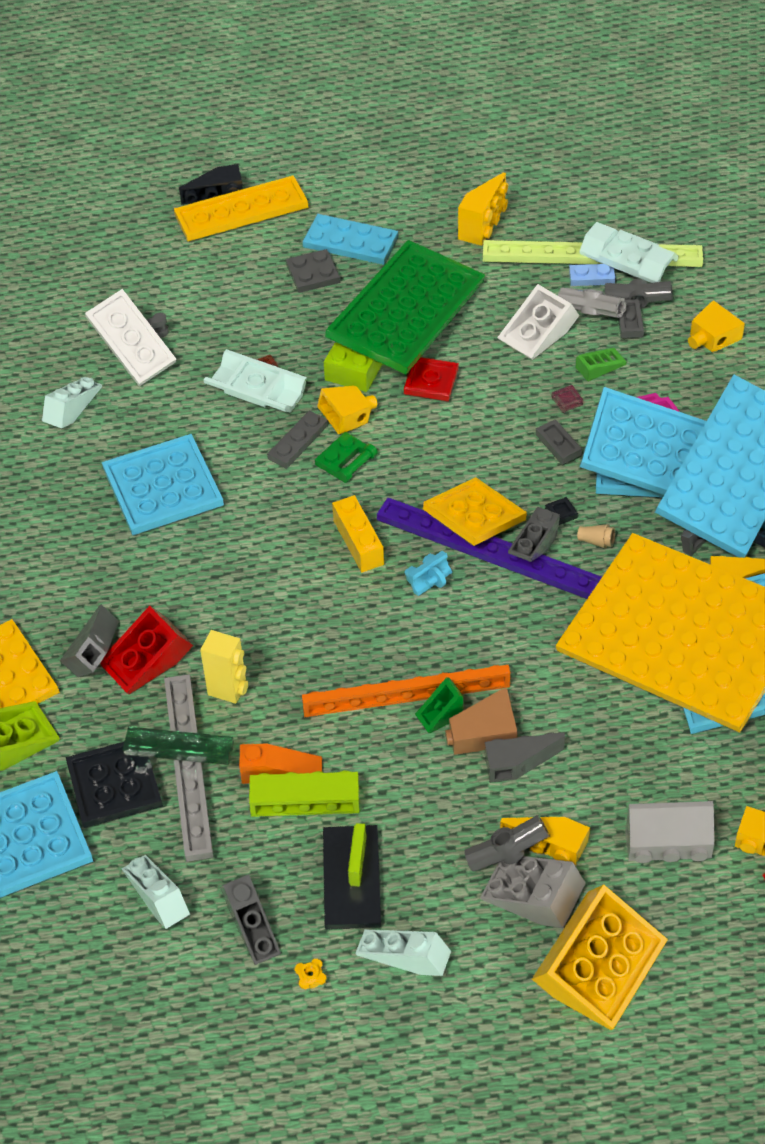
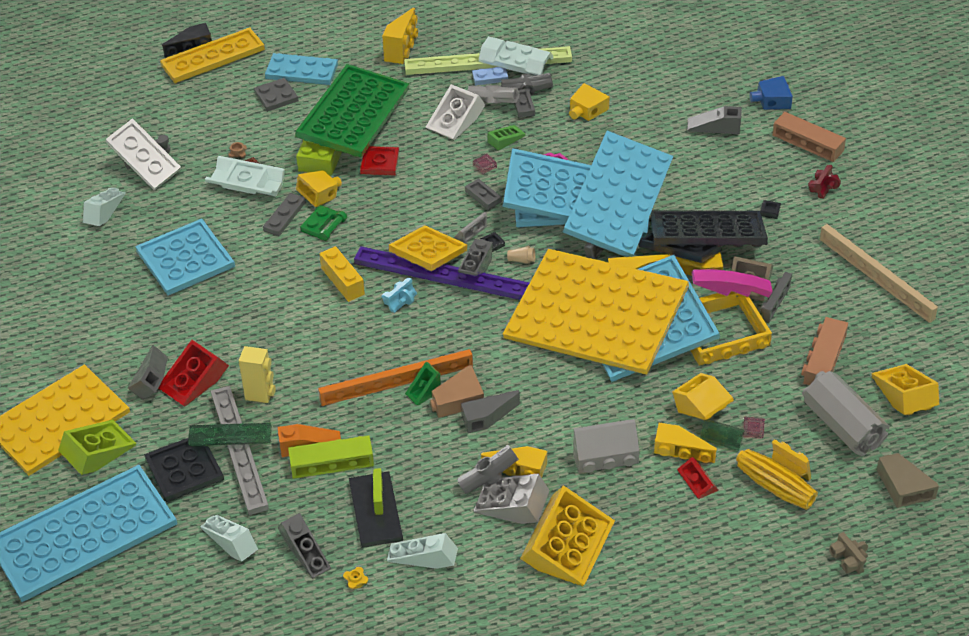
camera: 10 degrees left, 5 degrees down
(252, 343) = (237, 150): none -> medium nougat plate
(536, 490) = (472, 228): none -> light grey slope

